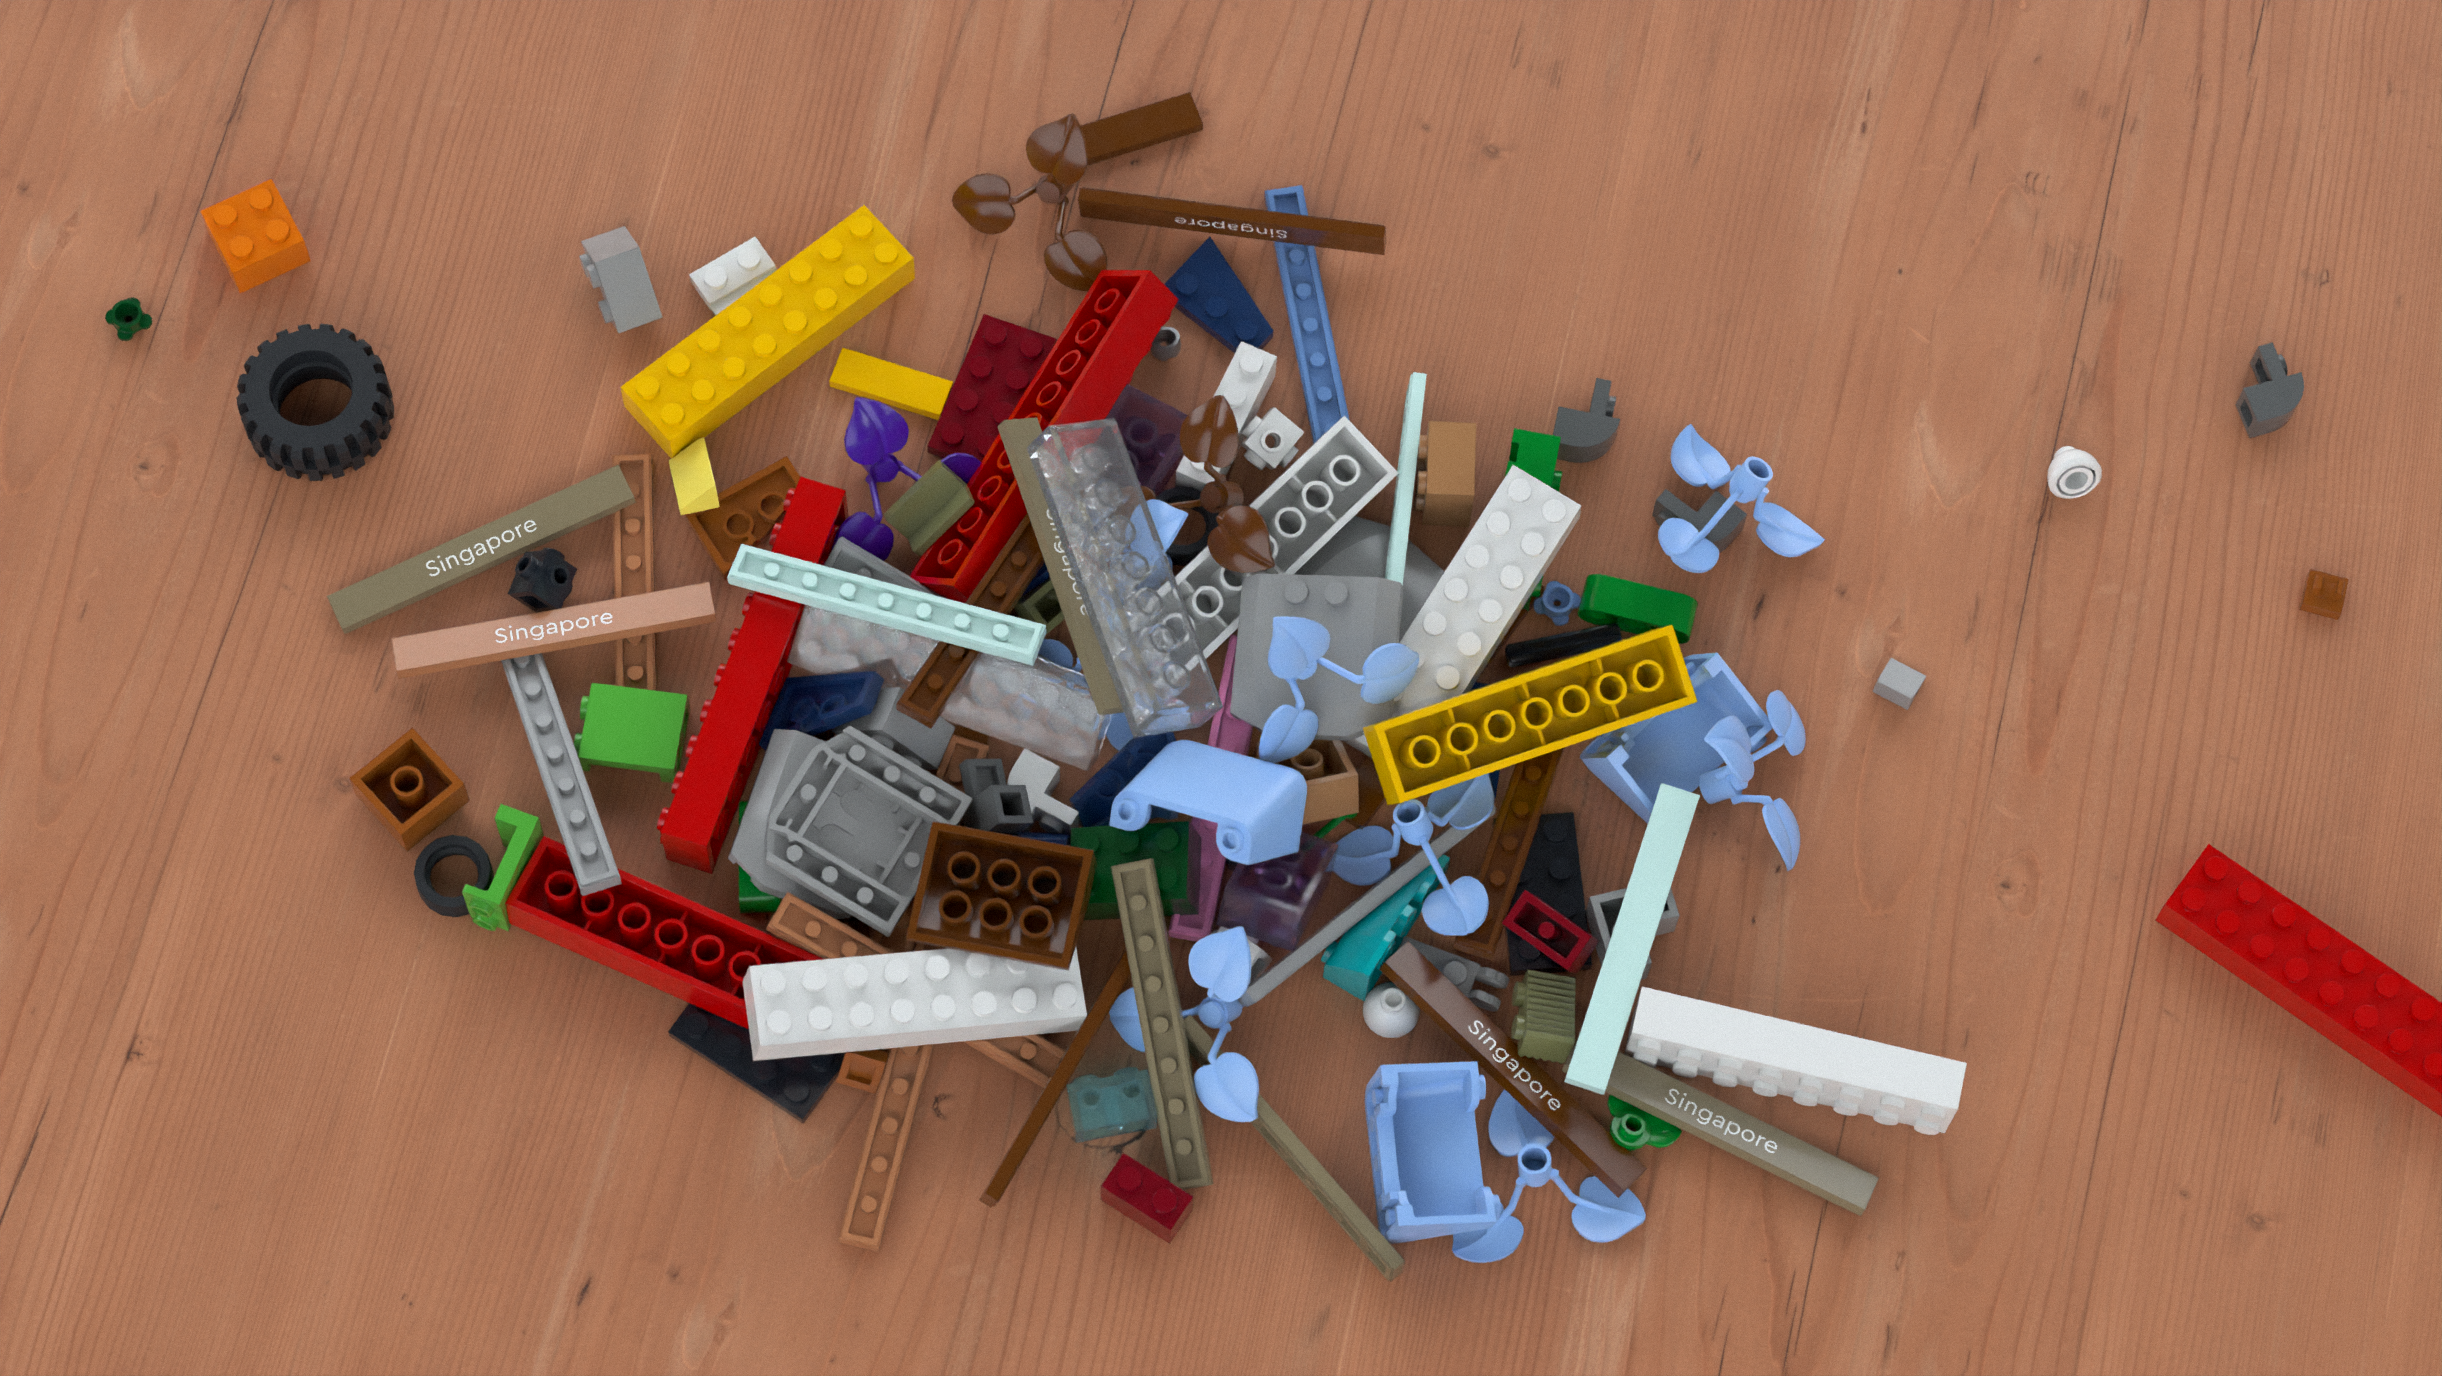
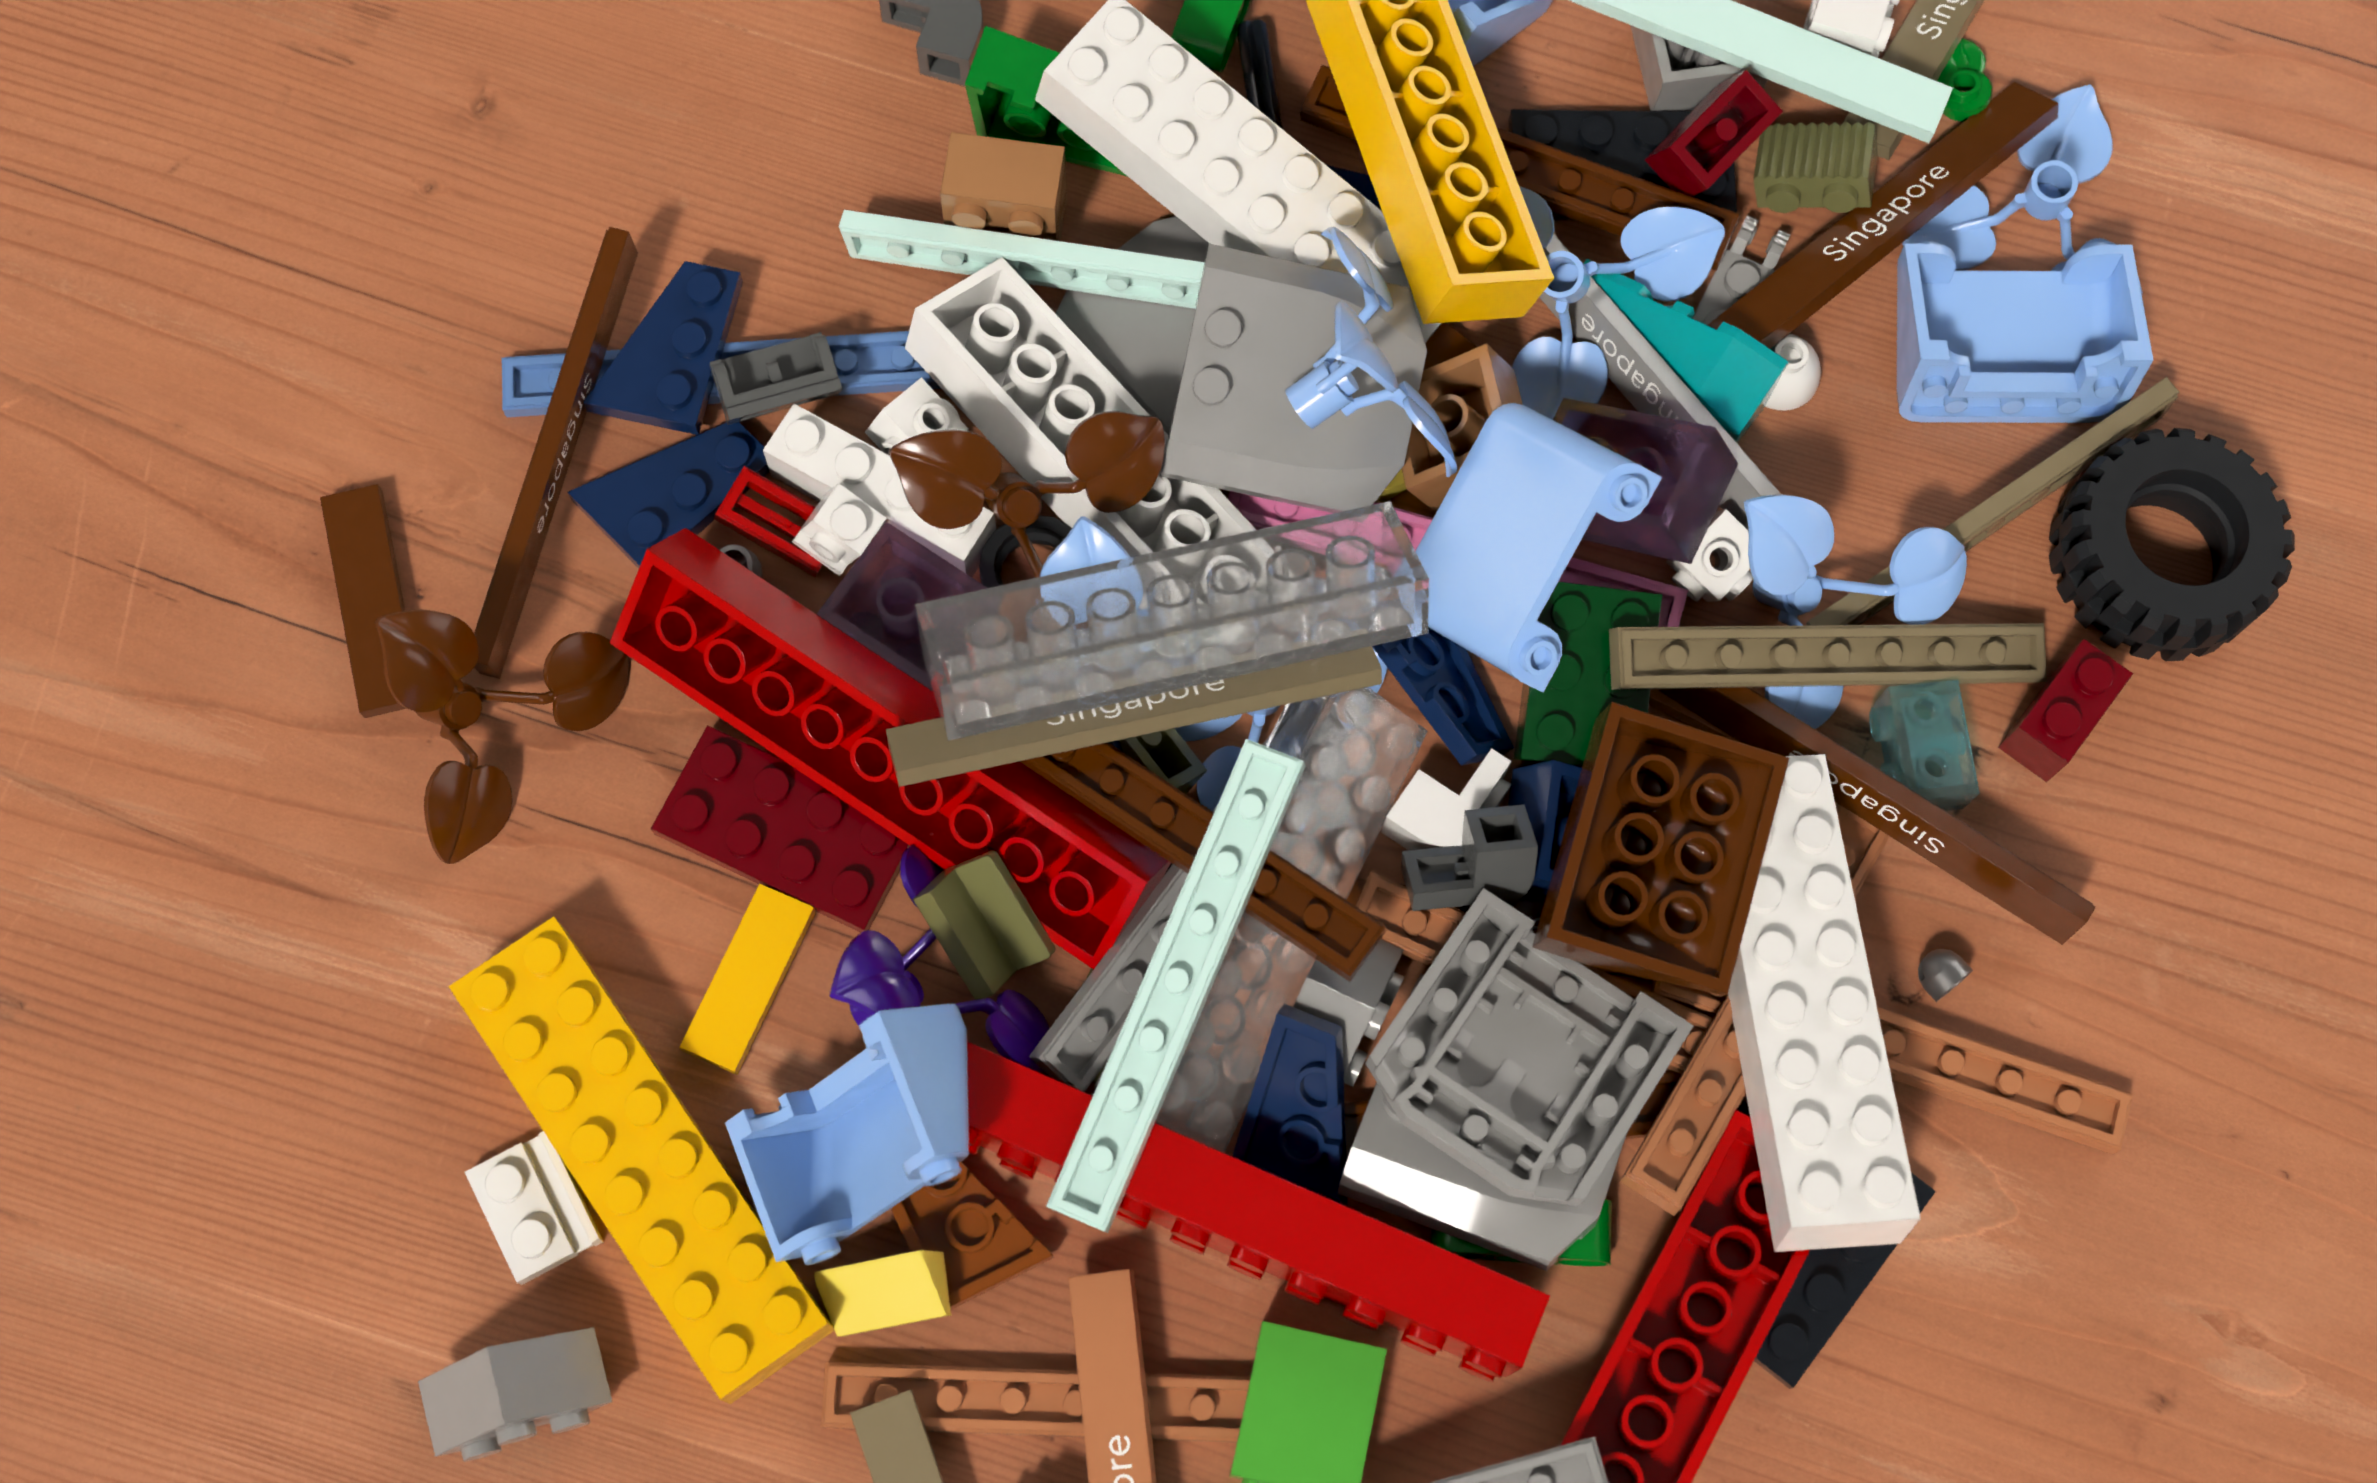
camera: 85 degrees left, 5 degrees up
(780, 438) = (860, 1134): none -> light blue windscreen
(952, 1122) = (1942, 972): none -> flat silver hinge
(1190, 395) = (758, 534): none -> red tile
(1191, 392) = (839, 529): none -> white brick
(1285, 1213) = (2212, 491): none -> black tyre
(1297, 345) = (775, 378): none -> dark grey hinge
(1314, 286) = (664, 366): none -> dark blue wing

